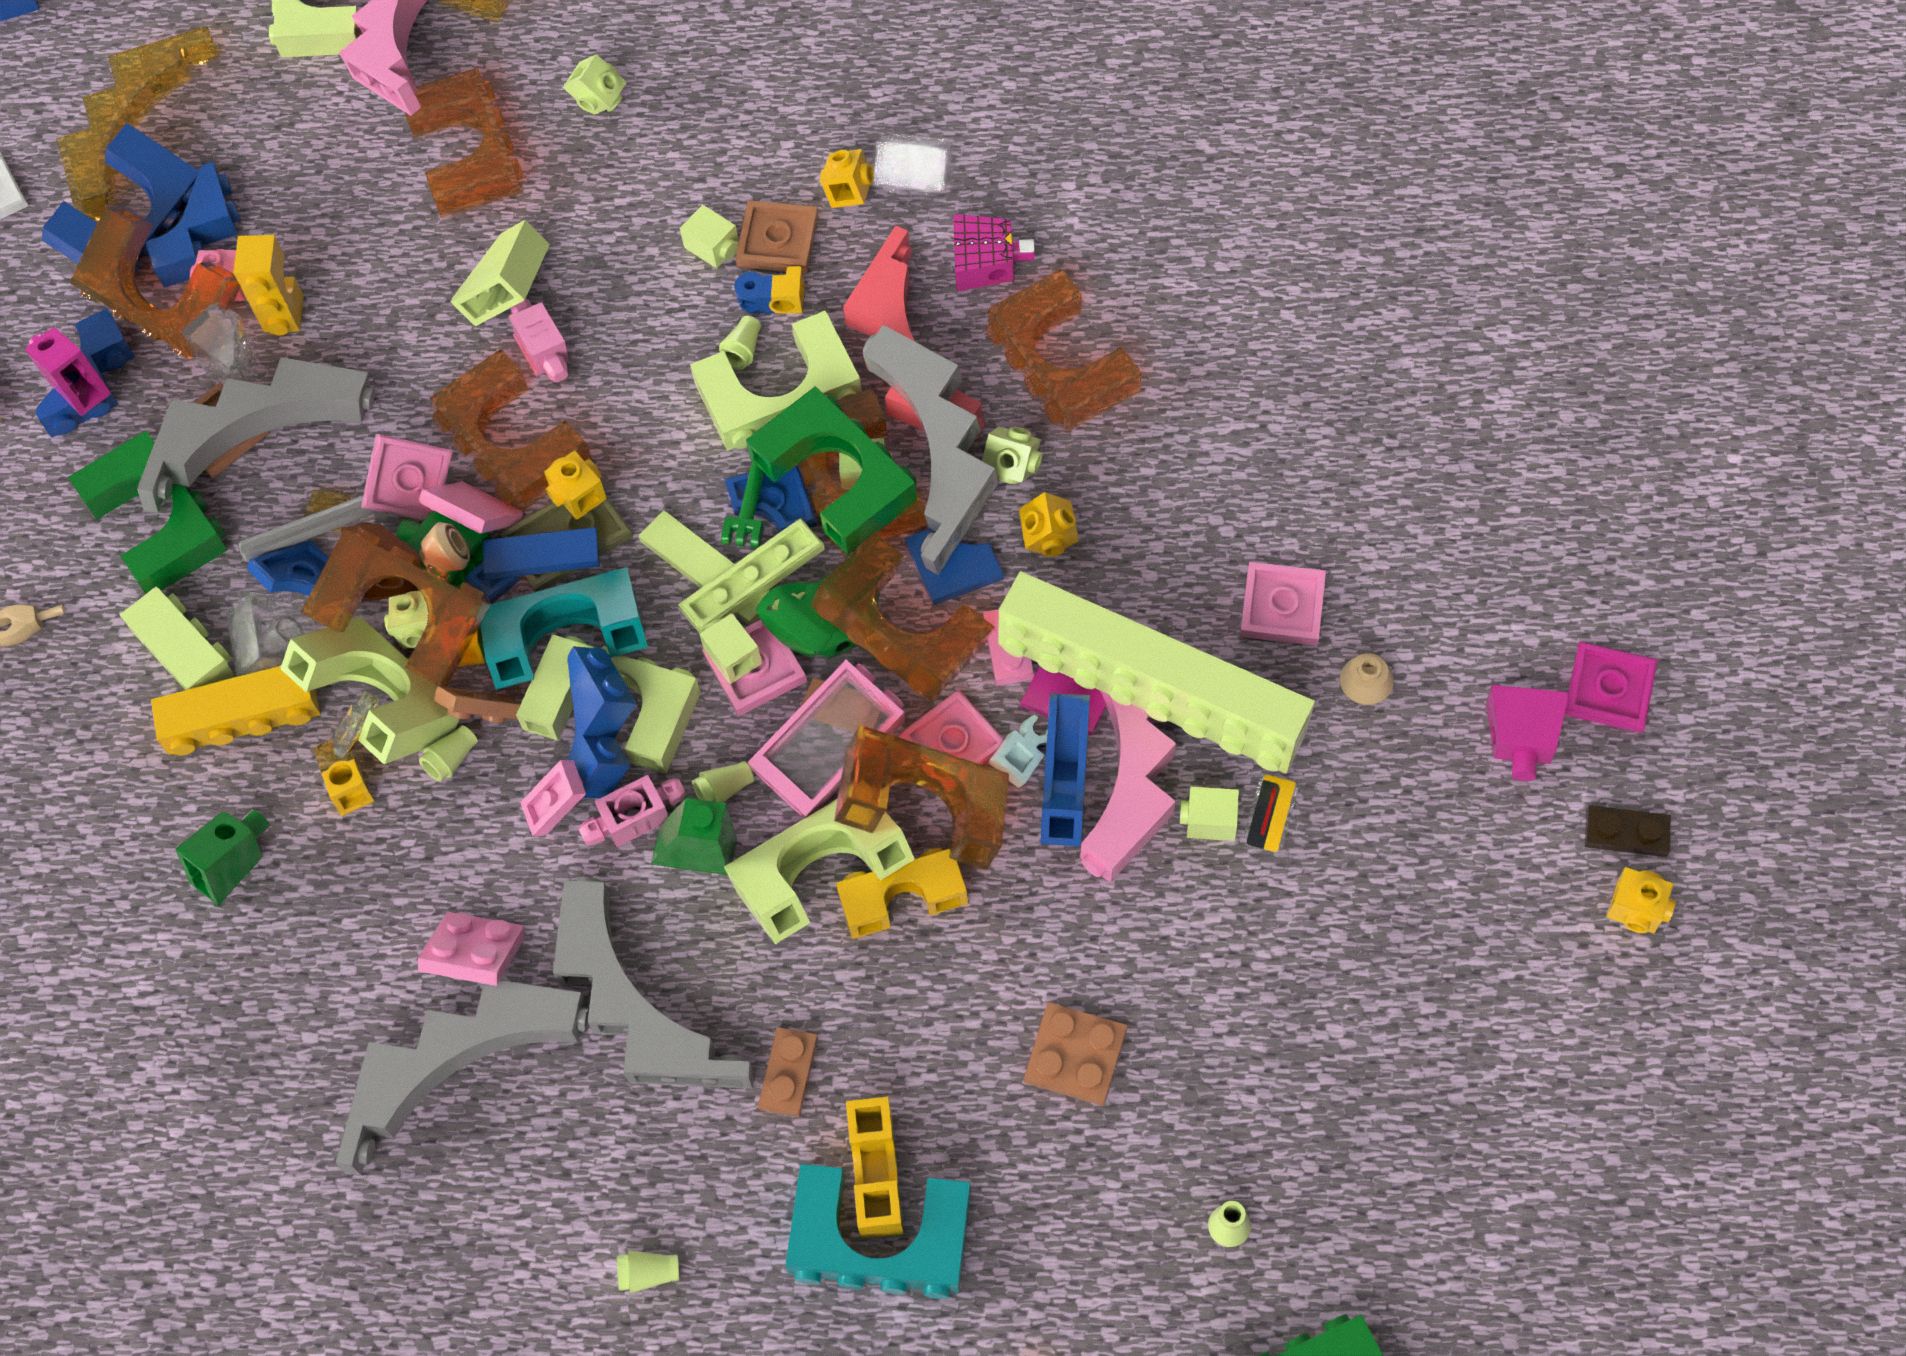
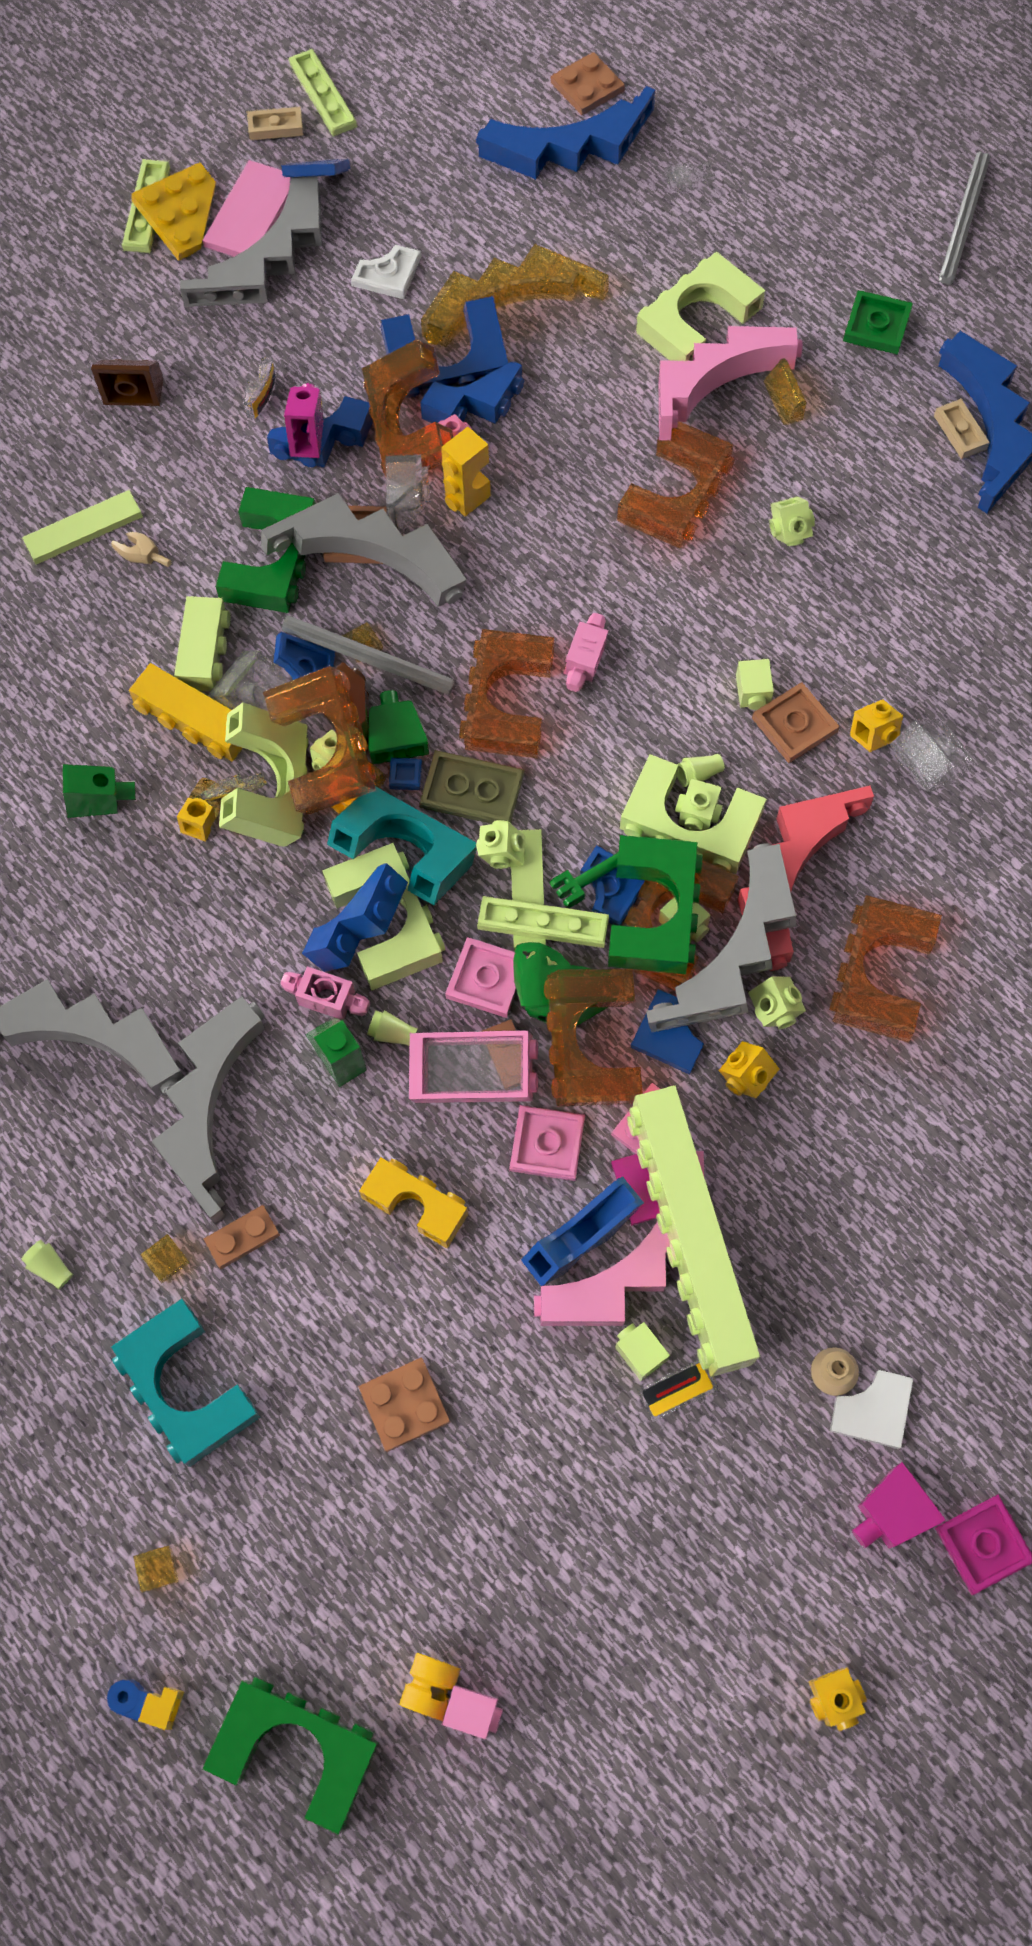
camera: 45 degrees right, 5 degrees up
(399, 474) = (417, 666): bright pink tile -> none
(444, 548) = (386, 731): tan cone -> none
(446, 754) = (268, 854): yellowish green cone -> none
(464, 702) = (309, 841): nougat plate -> none
(470, 507) = (434, 719): bright pink tile -> none
(471, 948) = (156, 982): bright pink plate -> none
(502, 274) = (608, 591): yellowish green slope -> none
(541, 553) = (443, 786): blue tile -> none
(553, 797) = (290, 941): bright pink plate -> none
(575, 484) = (502, 763): yellow brick -> none
(648, 548) = (501, 845): none -> yellowish green brick
(730, 648) = (478, 953): yellowish green brick -> none
(743, 1156) = (164, 1258): none -> clear yellow plate
(768, 871) = (355, 1109): yellowish green arch -> none
(771, 292) = (752, 756): leg -> none
(775, 367) = (699, 806): none -> yellowish green brick
(874, 1168) = (205, 1362): yellow arch -> none
(970, 790) = (516, 1184): clear orange arch -> none
(986, 251) = (911, 856): dark pink torso -> none
(1019, 753) = (572, 1191): light aqua plate -> none
(1226, 1232) = (382, 1606): yellowish green cone -> none
(1283, 603) = (837, 1269): bright pink plate -> none
(1348, 1230) = (429, 1686): none -> yellow wheel
(1403, 1206) = (472, 1712): none -> bright pink brick
(1429, 678) = (876, 1413): none -> white tile
(1627, 831) = (886, 1645): dark brown plate -> none

